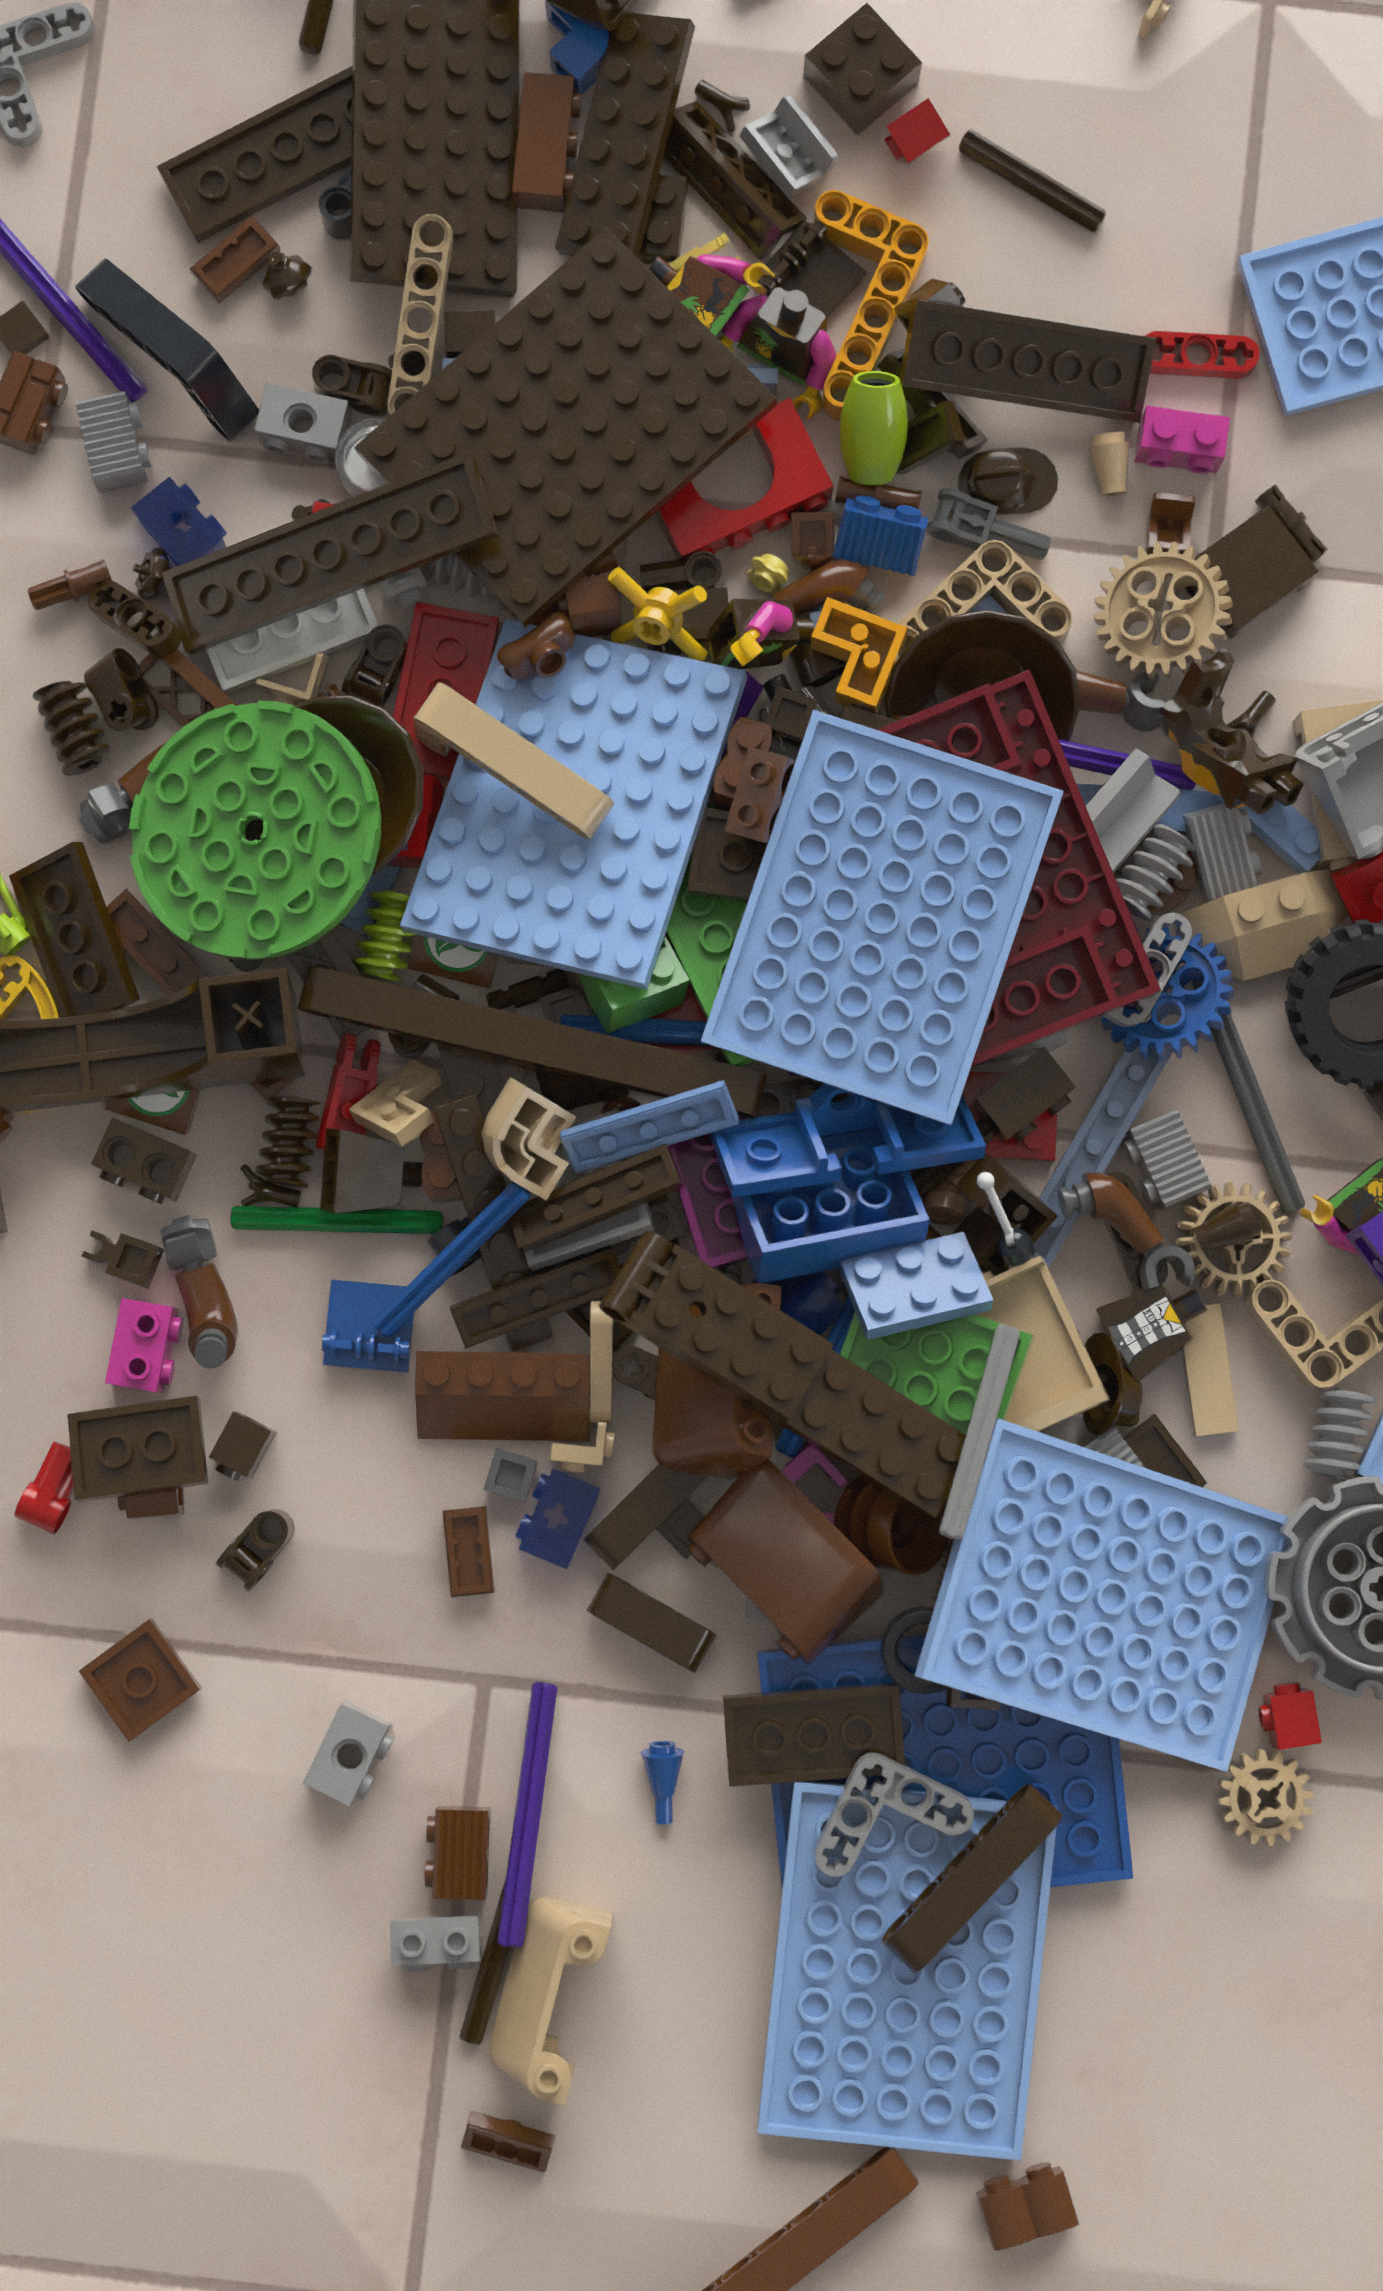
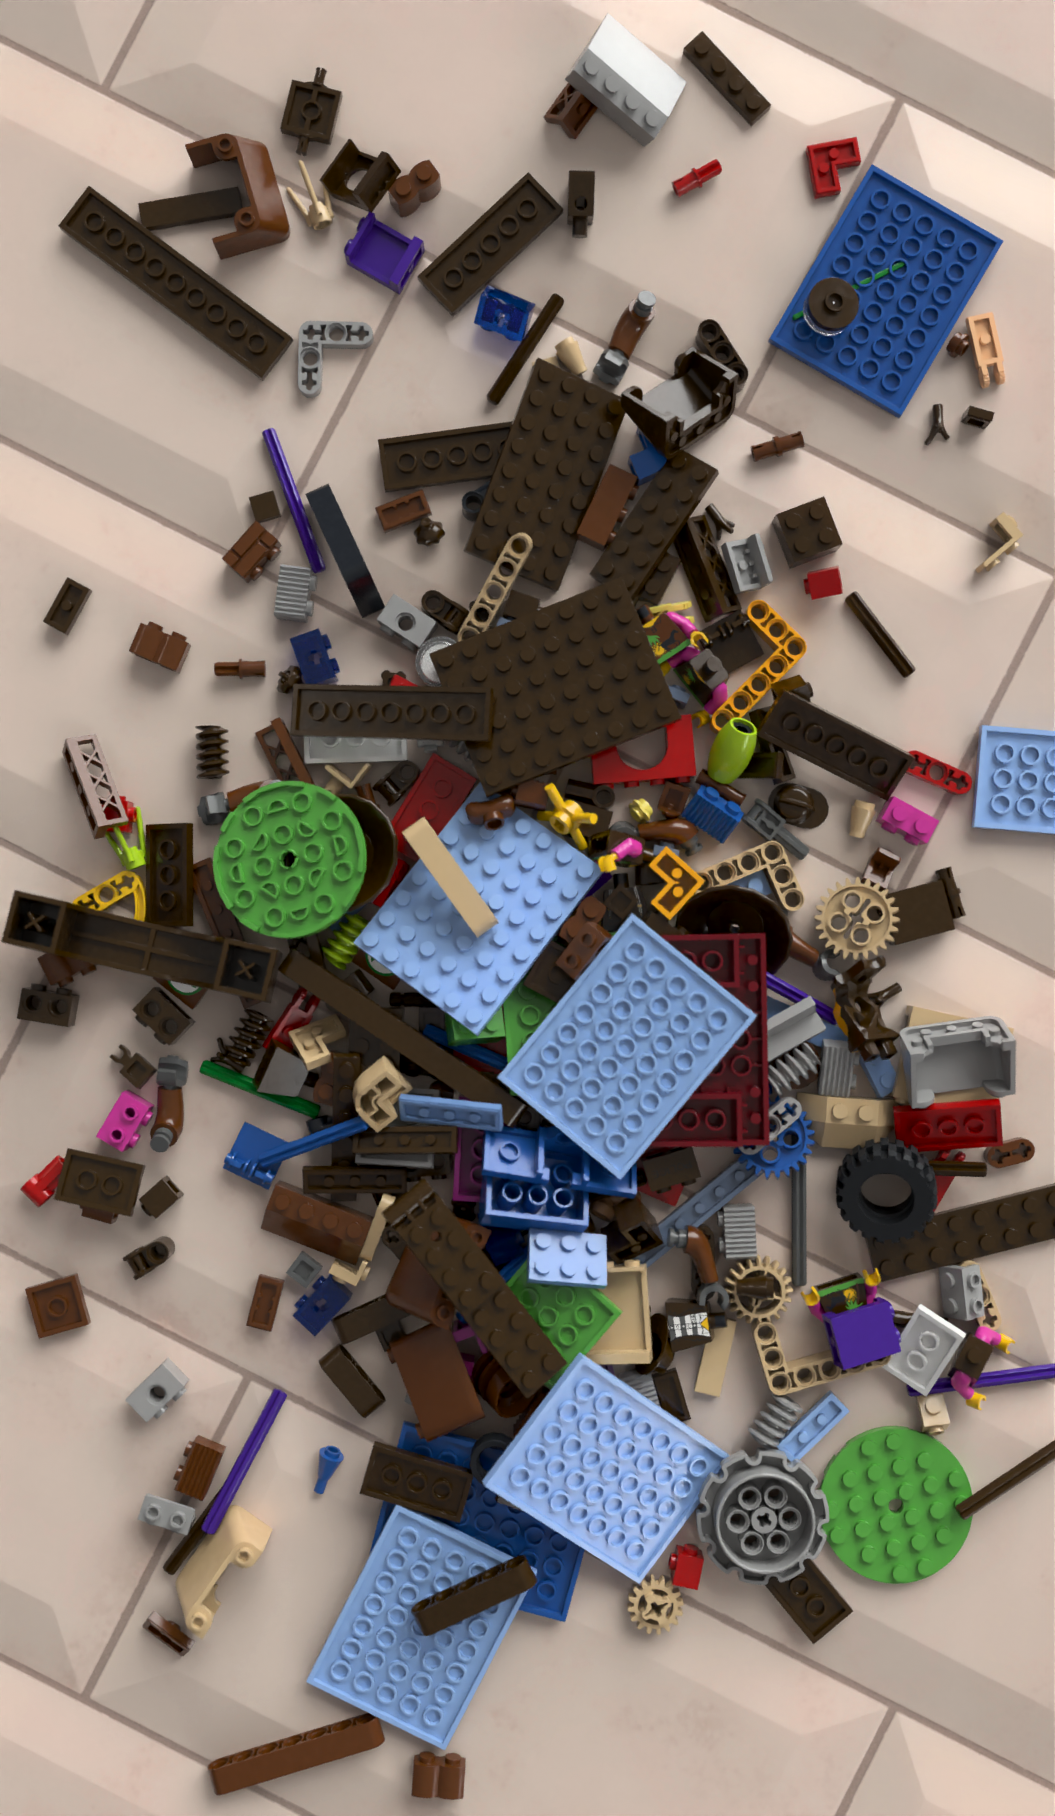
camera: 20 degrees right, 5 degrees up
(117, 689) = (245, 741): dark brown piece -> none
(141, 631) = (276, 709): dark brown beam -> none
(887, 1793) = (444, 1531): light grey beam -> none
(979, 1432) = (570, 1360): light grey axle -> none
(1013, 1244) = (630, 1249): hinge -> none

